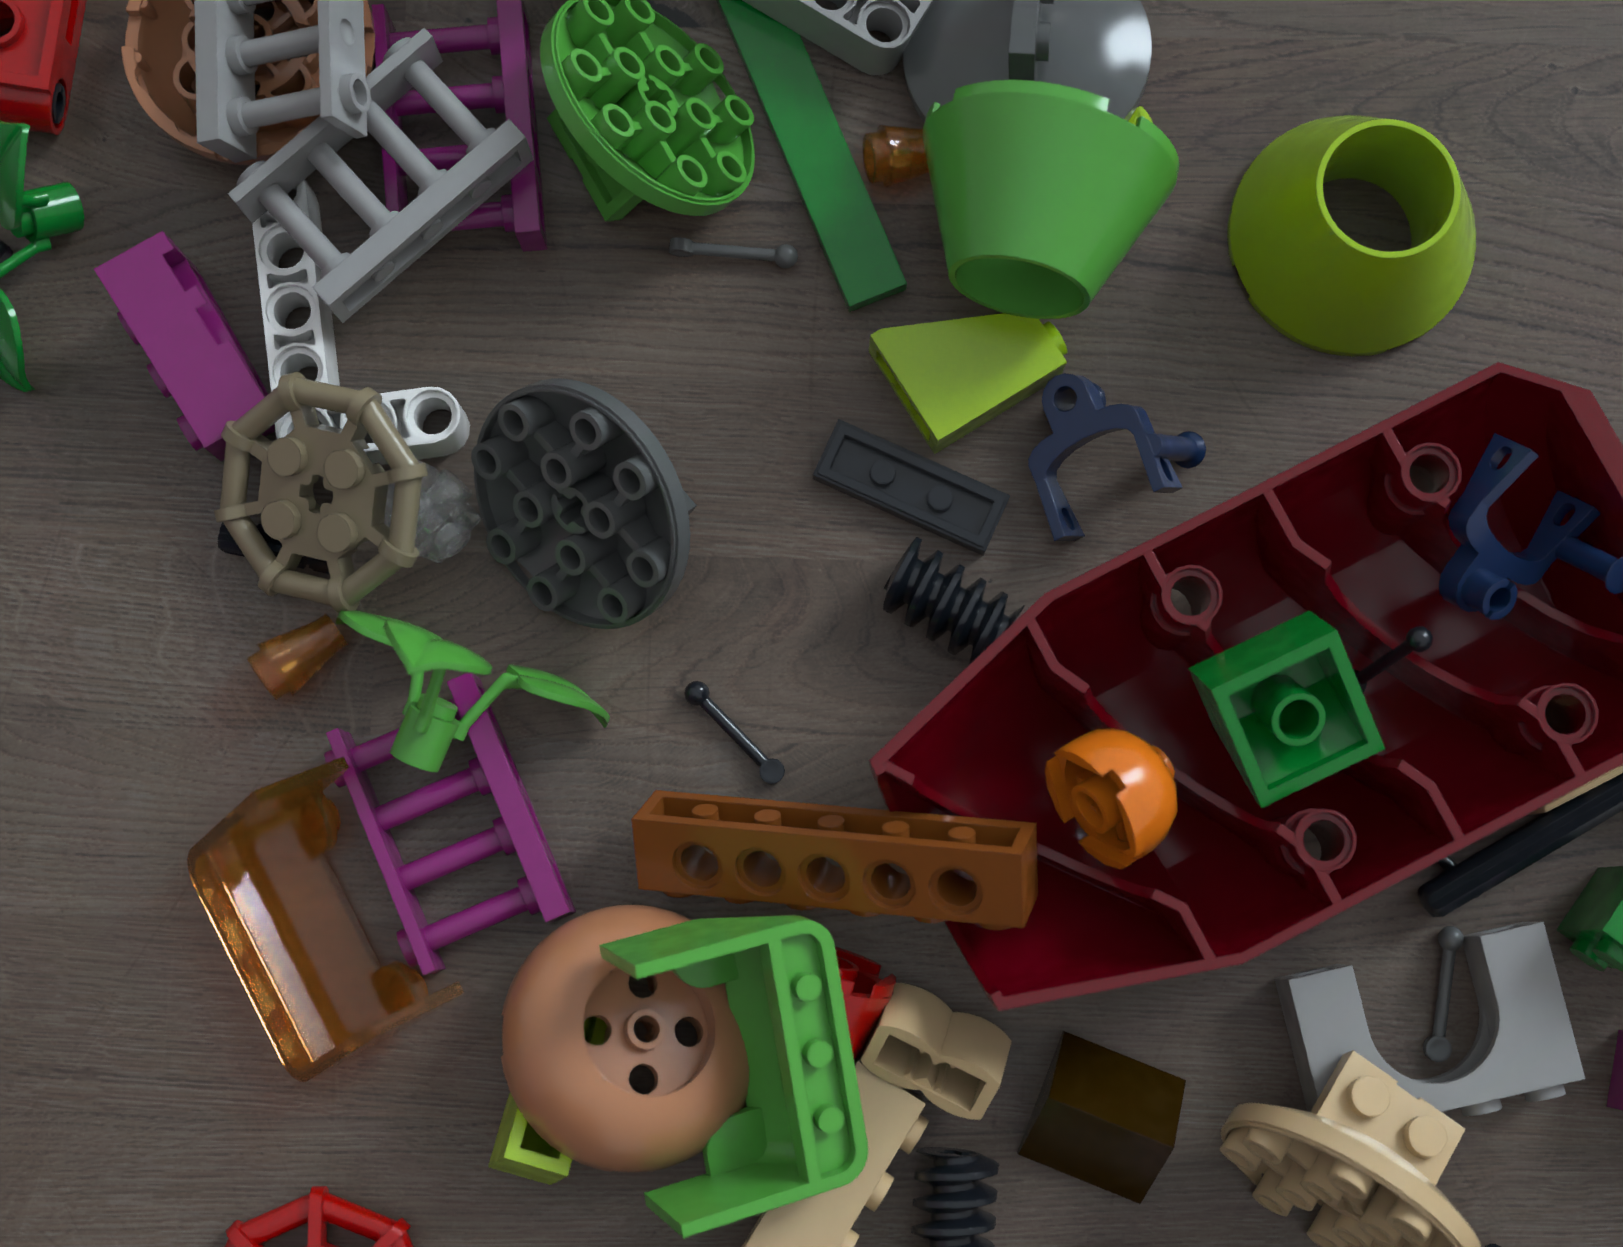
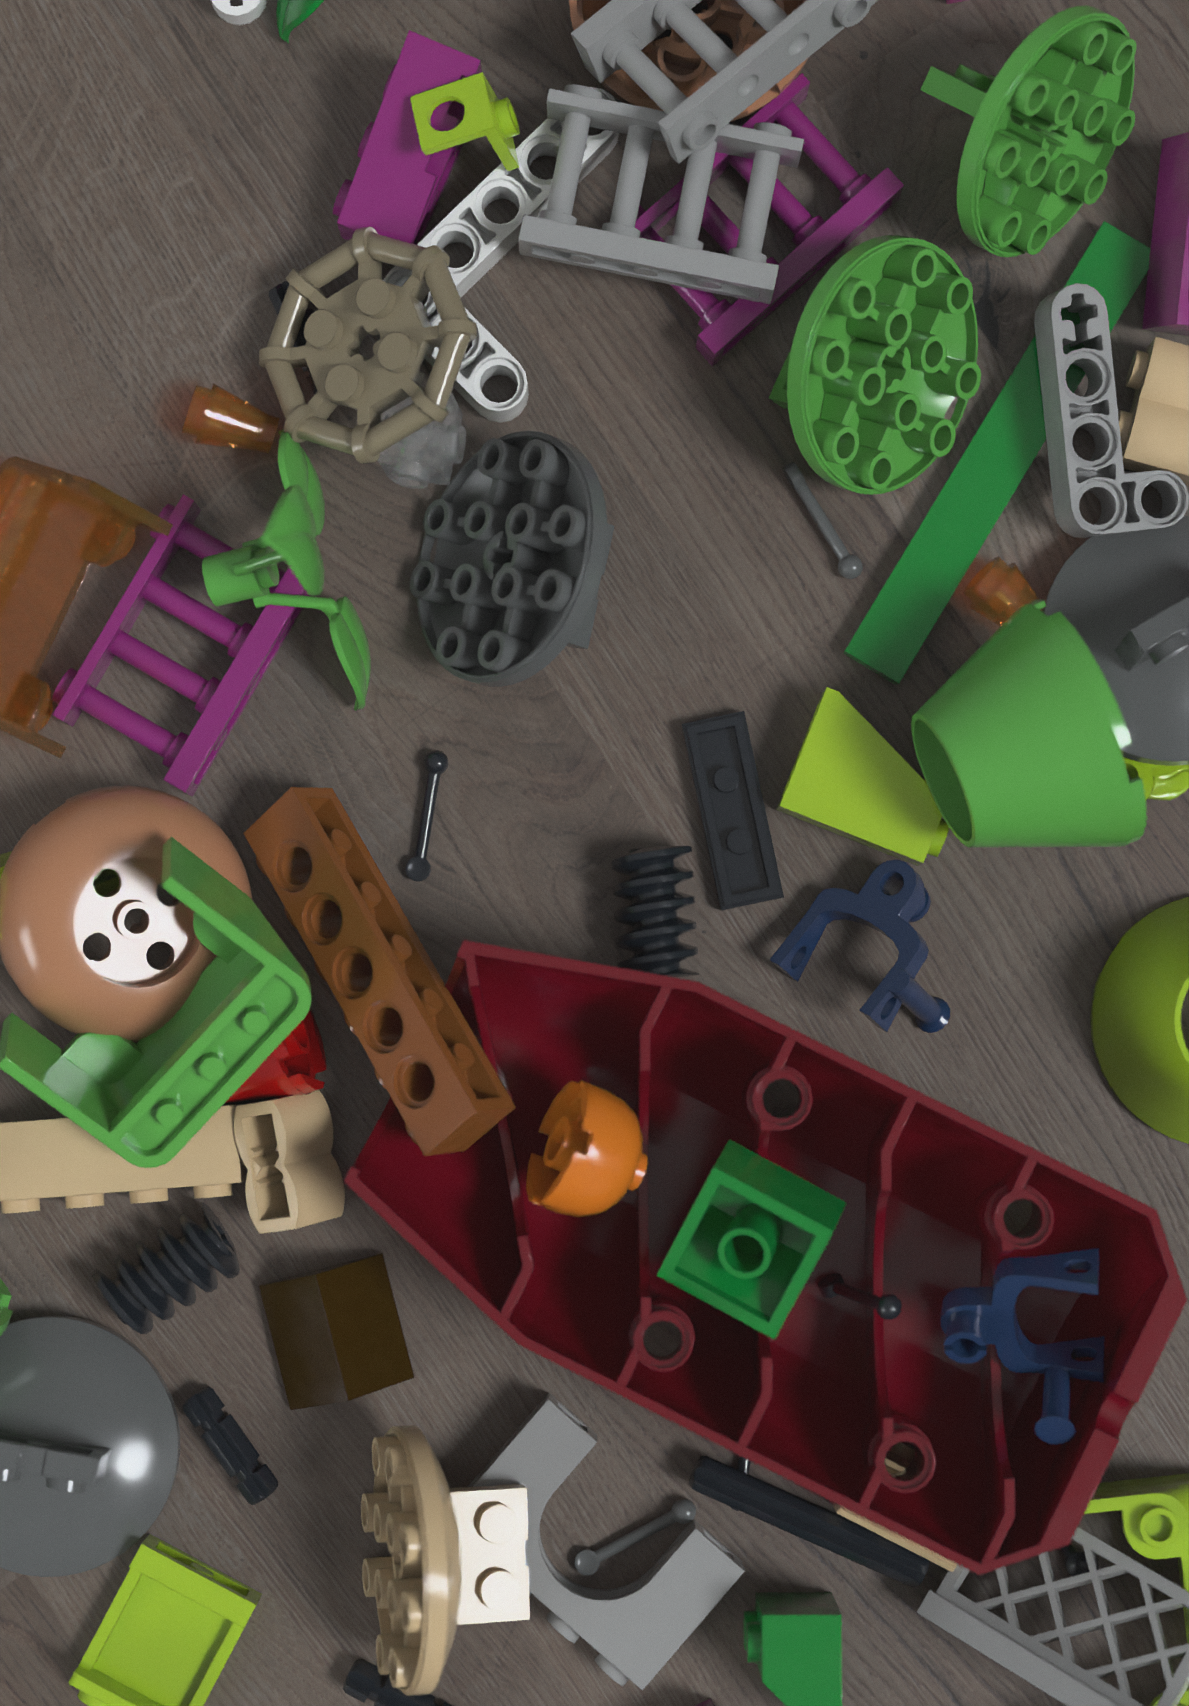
camera: 50 degrees right, 5 degrees up
(209, 266) = (483, 117): none -> lime bracket

